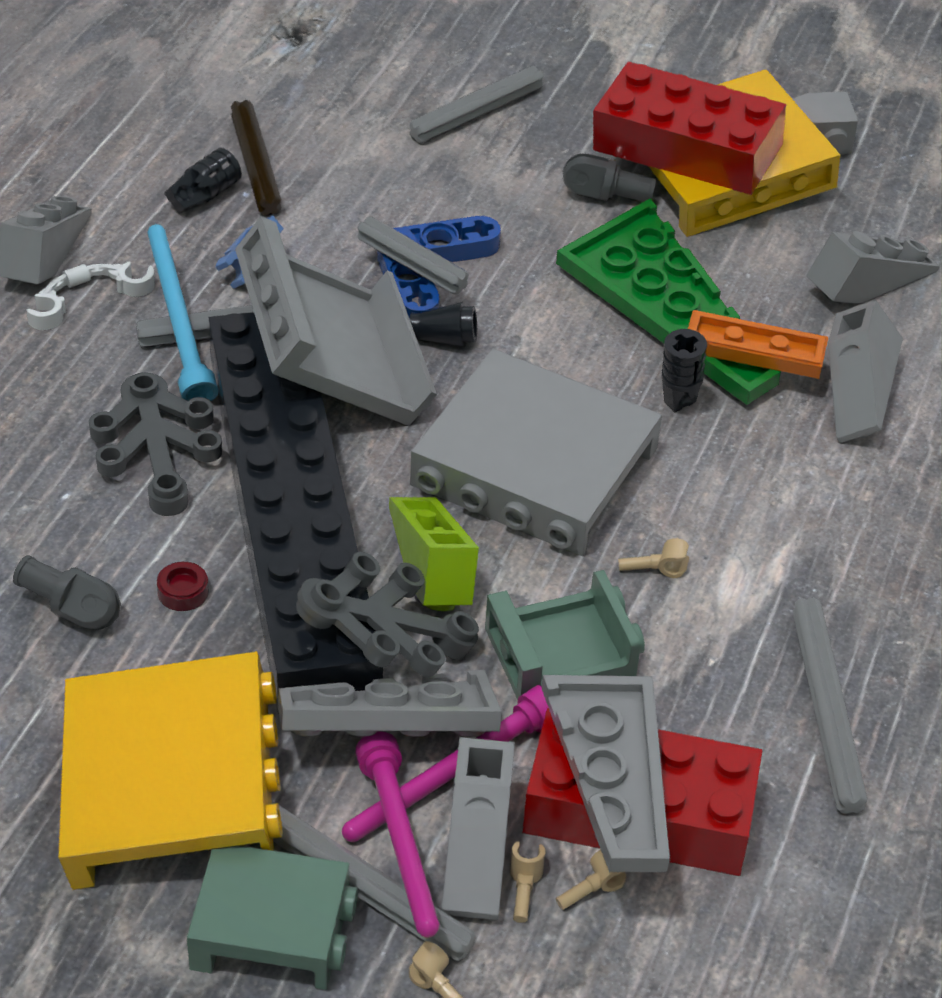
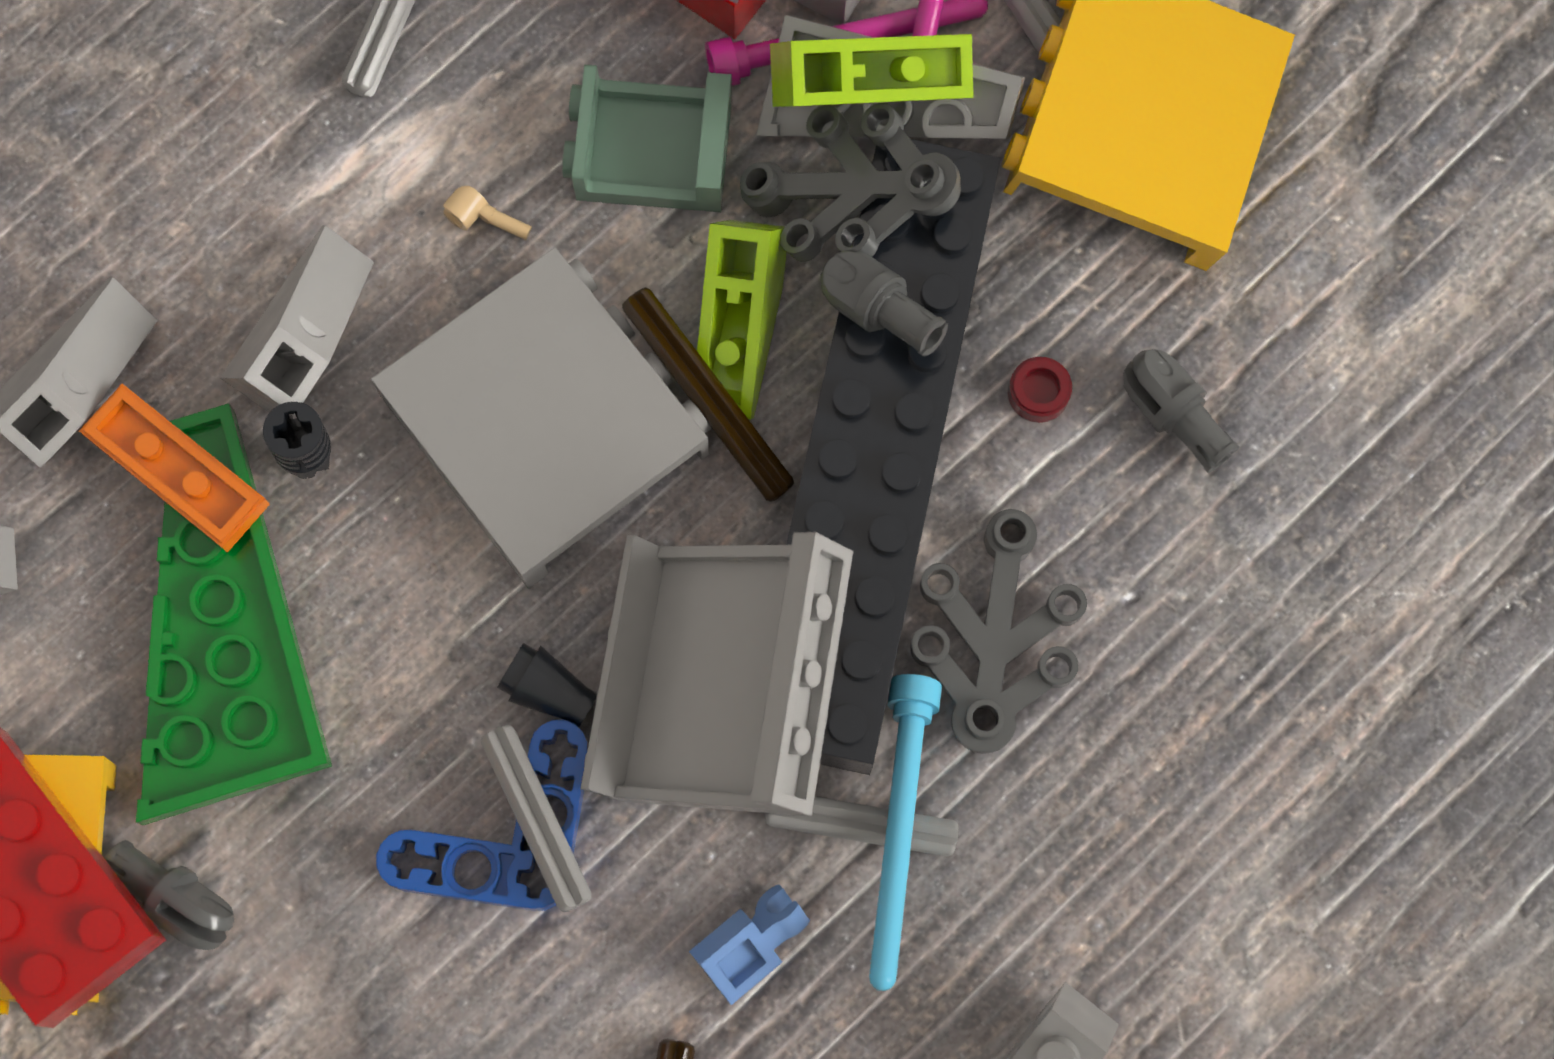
camera: 155 degrees left, 30 degrees up
(55, 306) = (1001, 999): white piece -> none
(328, 523) = (879, 300): none -> dark grey arm
(420, 669) = (871, 70): none -> lime slope
(428, 489) = (708, 394): none -> dark brown axle
(732, 438) = (301, 324): none -> light grey slope

